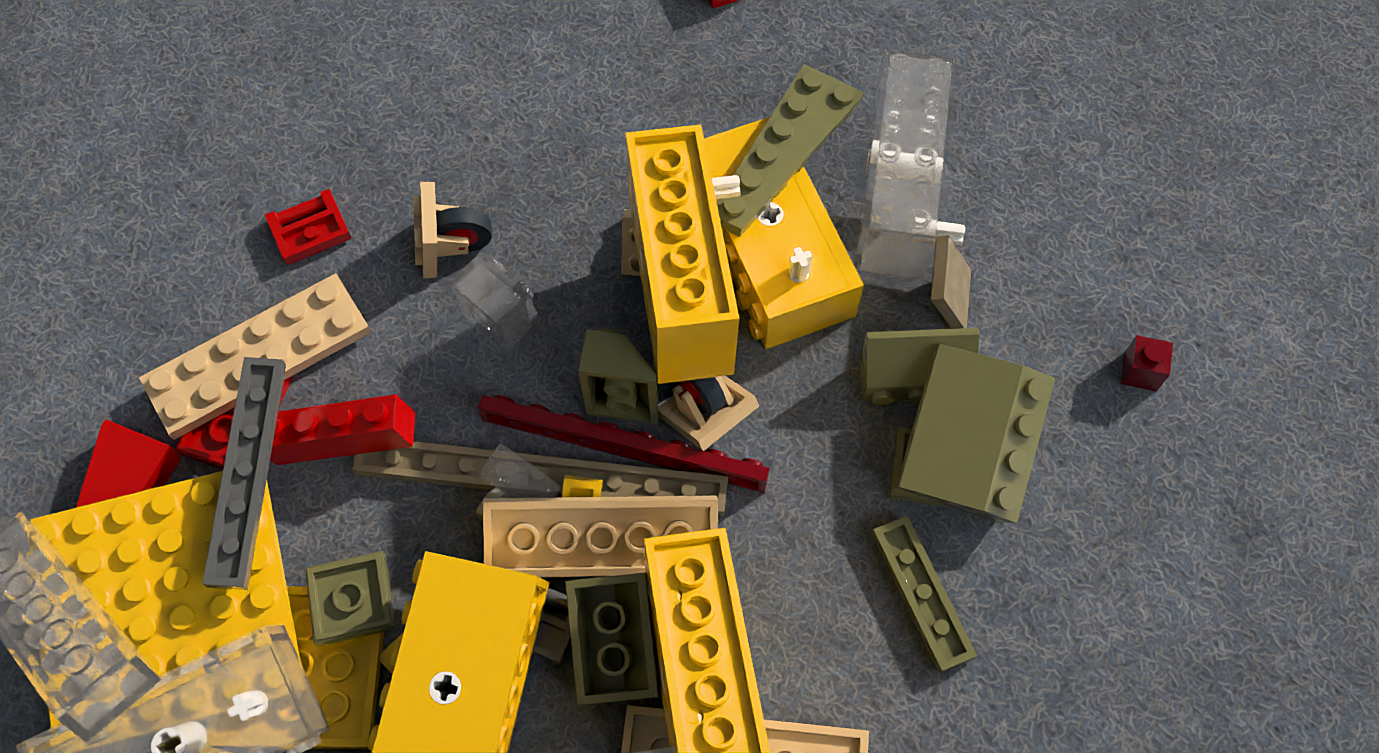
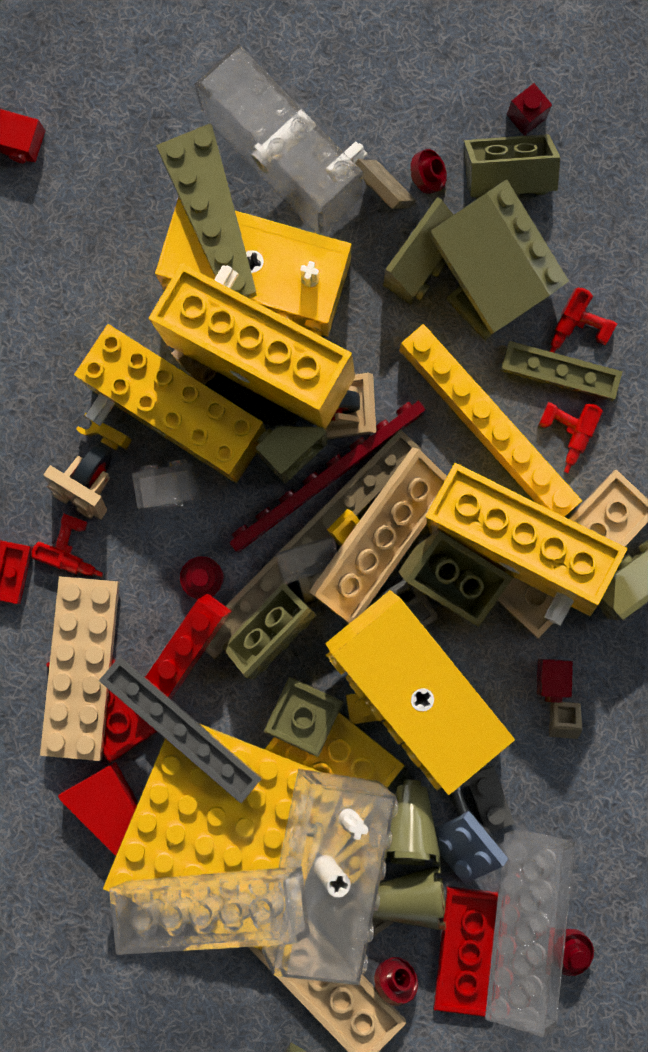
camera: 45 degrees left, 20 degrees up
(359, 265) = (60, 555): none -> red piece
(415, 500) = (268, 632): none -> olive slope
(431, 400) = (201, 577): none -> dark red plate
(508, 228) = (111, 436): none -> yellow plate
(573, 240) = (168, 403): none -> yellow piece
(804, 566) = (488, 422): none -> yellow brick
(881, 661) = (580, 429): none -> red piece
(992, 562) = (575, 315): none -> red piece
(1001, 317) = (428, 171): none -> dark red plate
(1082, 389) = (525, 161): none -> olive slope

